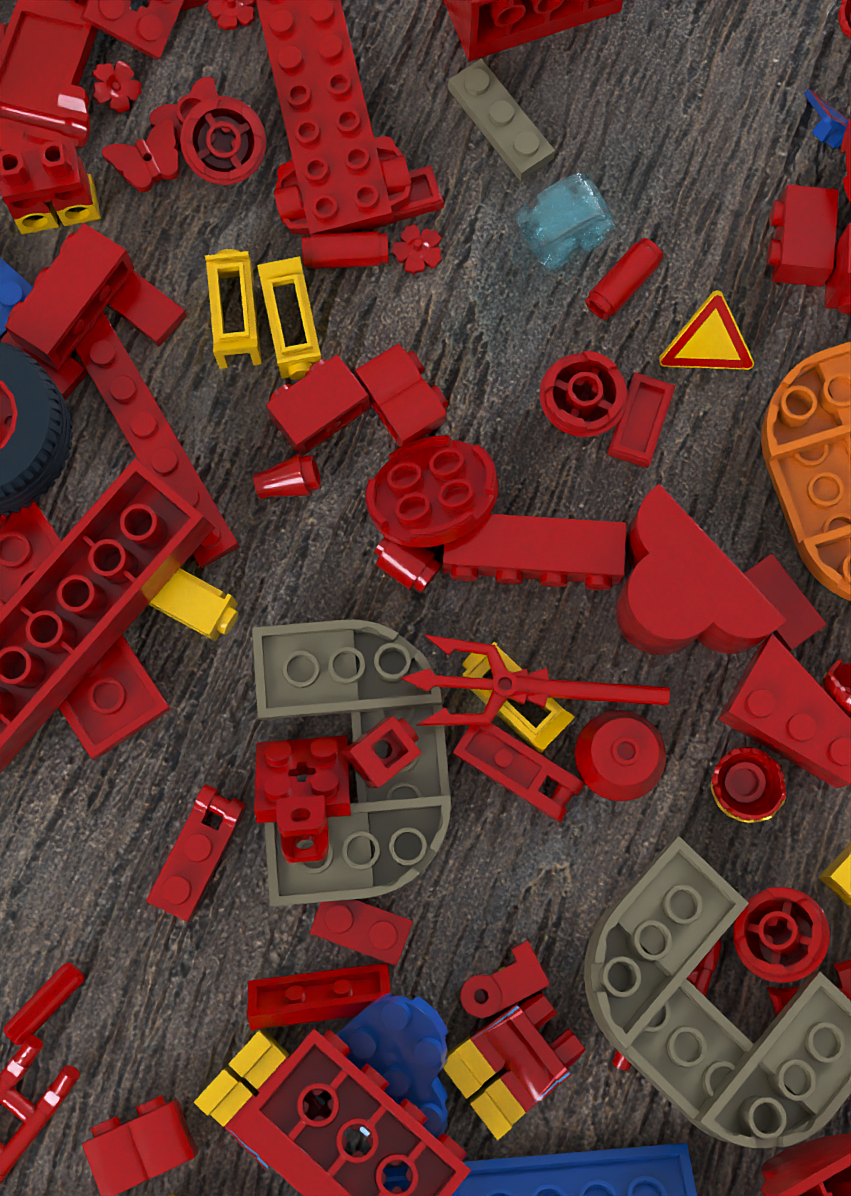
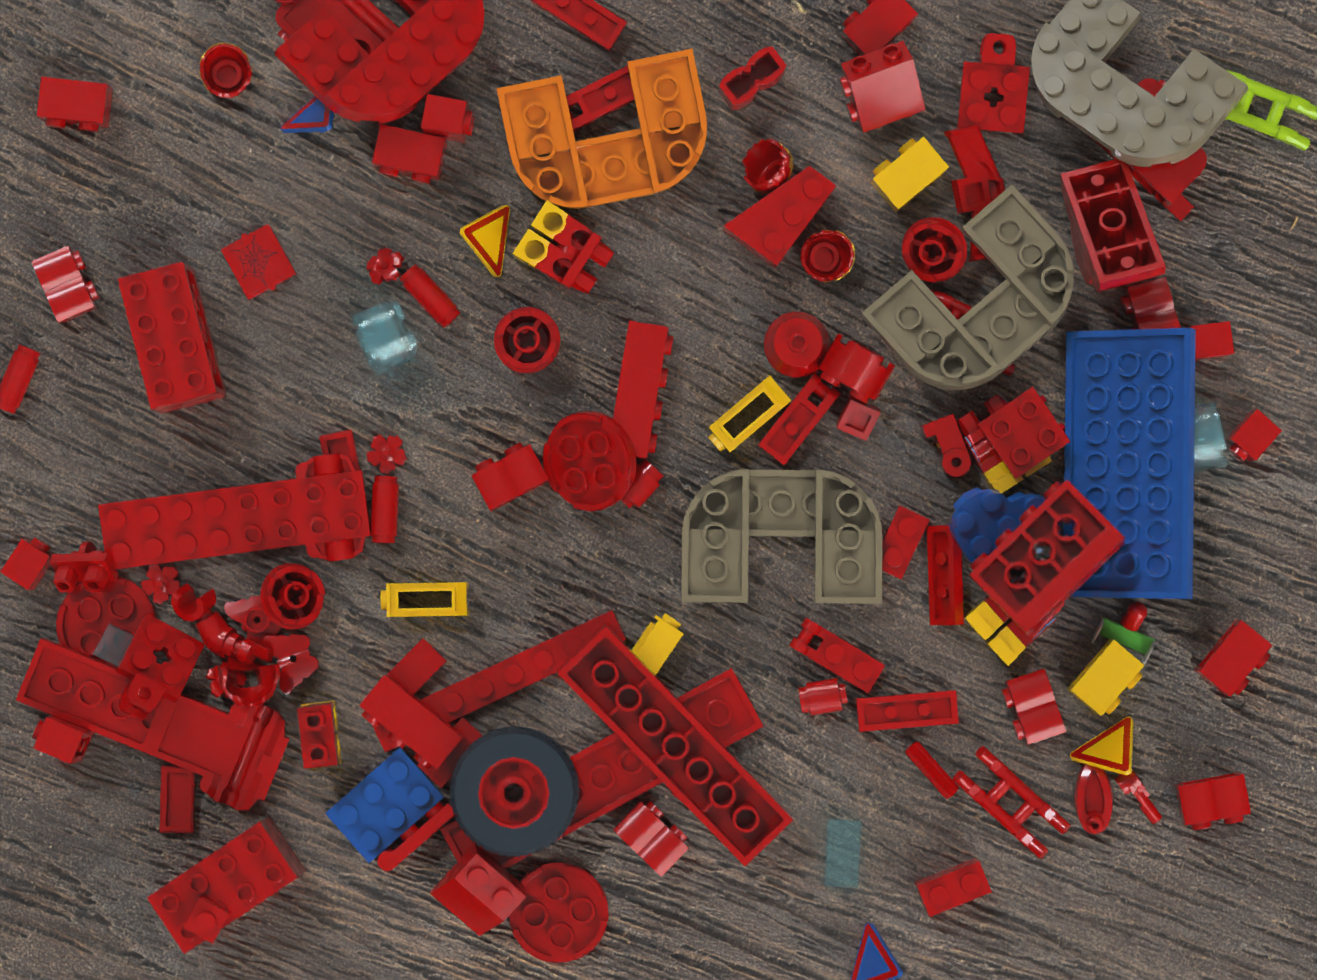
camera: 85 degrees left, 10 degrees up
(92, 94) = (250, 696): none -> red helmet
(124, 960) = (907, 710): none -> red plate
(137, 837) = (822, 696): none -> red brick
(180, 61) = (213, 629): none -> red piece
(289, 478) = (565, 566): red cone -> none
(296, 359) = (475, 554): yellow window -> none
(302, 806) = (813, 578): red plate -> none
(317, 404) = (510, 540): red brick -> none
(402, 750) = (784, 502): red brick -> none
(501, 119) = (283, 377): dark tan plate -> none
(520, 686) = (745, 411): red piece -> none
(528, 850) = (858, 418): none -> red plate
(534, 1094) = (1024, 432): none -> red plate
(598, 837) = (856, 368): none -> red brick
(639, 80) = (258, 262): none -> red piece
(642, 420) = (542, 294): red tile -> none
(655, 220) = (384, 266): none -> red plant
(686, 587) = (681, 285): red brick -> none
(704, 448) = (573, 250): none -> red hips
(788, 599) = (694, 212): red tile -> none

